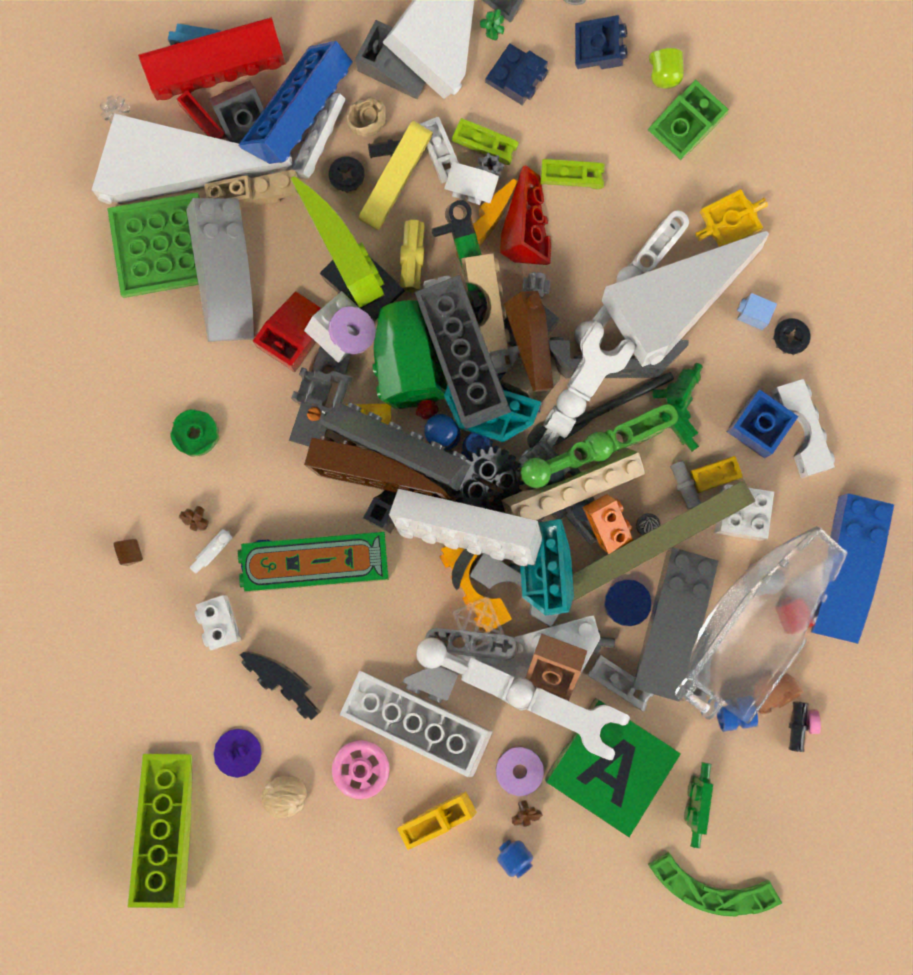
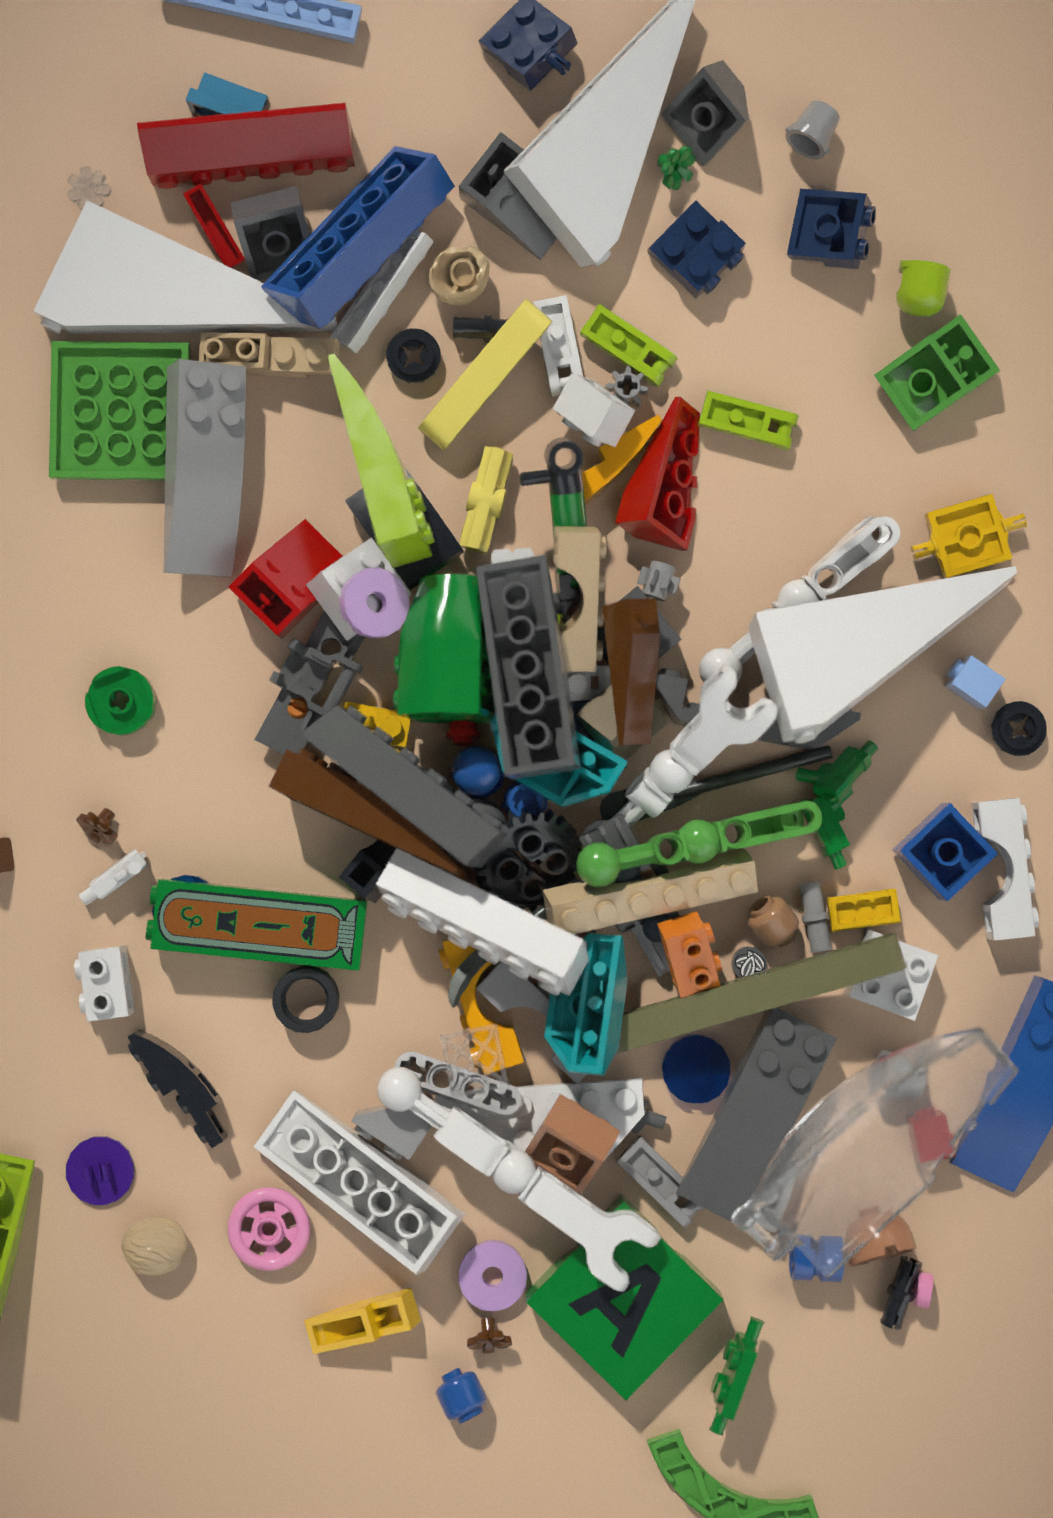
camera: 10 degrees right, 5 degrees up
(338, 610) = (303, 1025): none -> black tyre
(658, 493) = (772, 921): none -> medium nougat head

